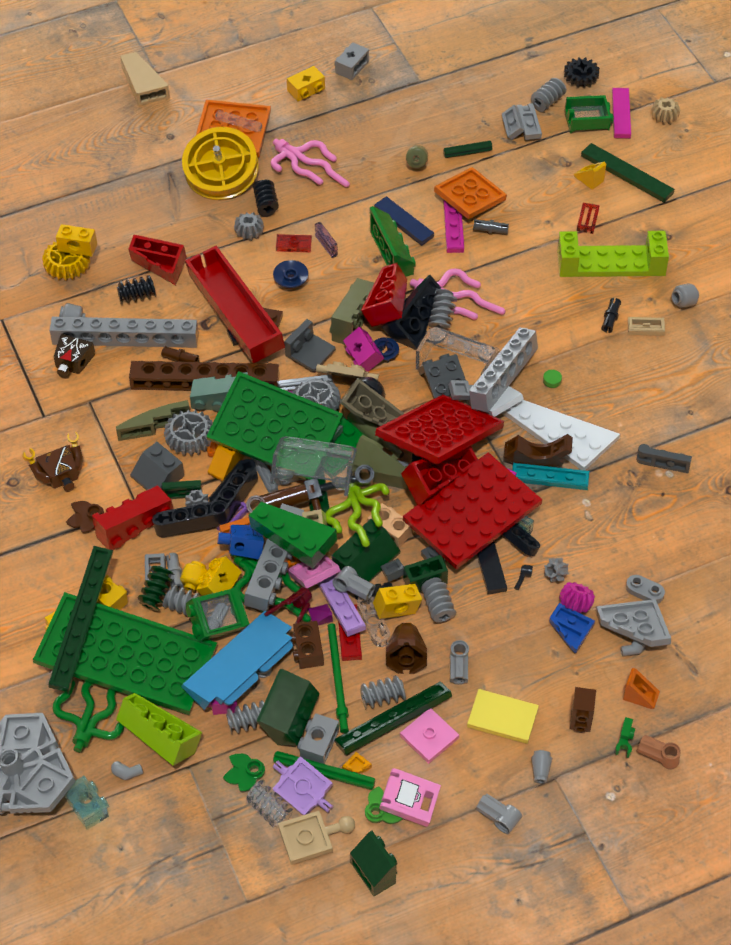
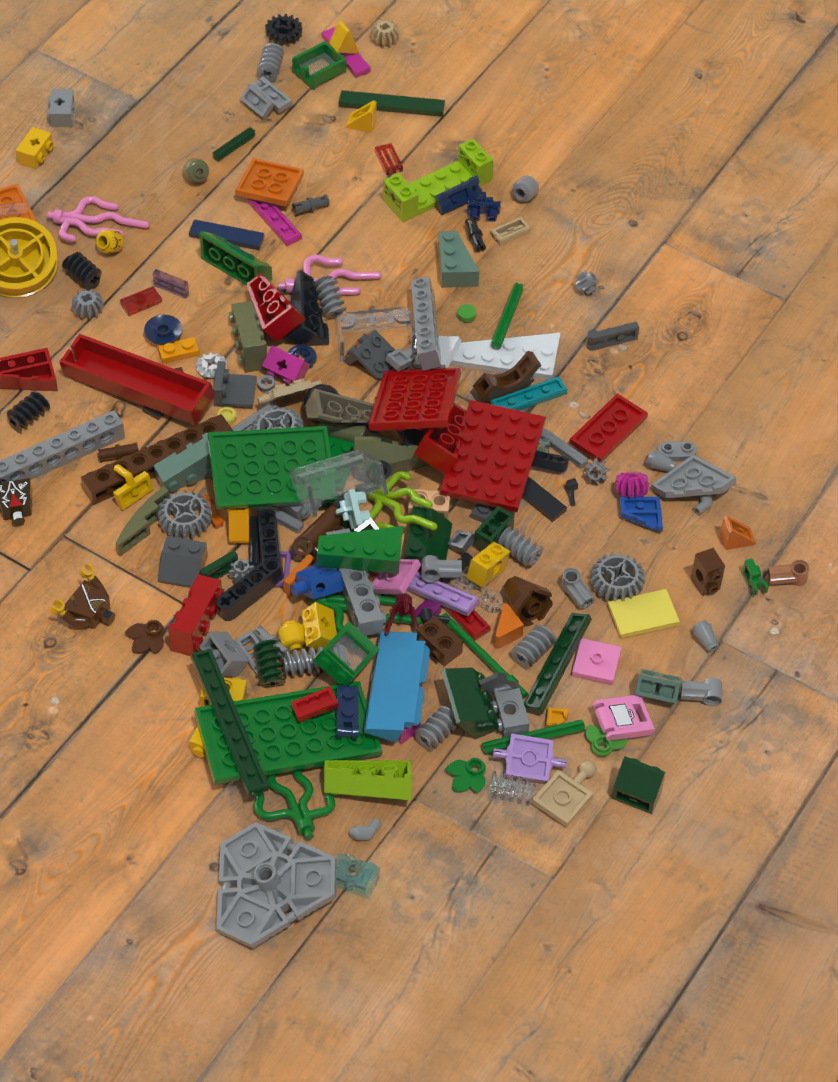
camera: 35 degrees left, 0 degrees up
(128, 561) = (226, 652): none -> light grey brick
(160, 641) = (315, 704): none -> red plate
(165, 391) = (133, 489): none -> yellow plate
(183, 662) = (347, 712): none -> dark blue plate
(287, 369) = (229, 414): none -> light yellow tile
(292, 297) = (178, 350): none -> light orange plate
(304, 183) = (109, 241): none -> yellow head
(310, 315) = (202, 364): none -> white gear
(315, 616) = (426, 614): none -> black hand
(319, 487) = (350, 508): none -> light aqua hips
(321, 706) = (497, 683): none -> dark grey slope
(340, 353) = (266, 379): none -> light grey bush
(372, 665) = (509, 627): none -> orange slope
(460, 786) = (658, 686): none -> sand green brick
(504, 665) = (617, 577): none -> light grey gear
(545, 534) = (565, 448): none -> light grey axle
(572, 329) = (455, 261): none -> sand green wedge
(584, 397) = (507, 315): none -> green axle
(598, 537) = (608, 428): none -> red plate
(619, 102) = (342, 40): none -> yellow slope
(620, 589) = (659, 461): none -> light grey cone
(622, 274) = (458, 195): none -> dark blue plate
(637, 292) = (484, 205): none -> clear blue hips
(676, 401) = (586, 282): none -> light grey gear

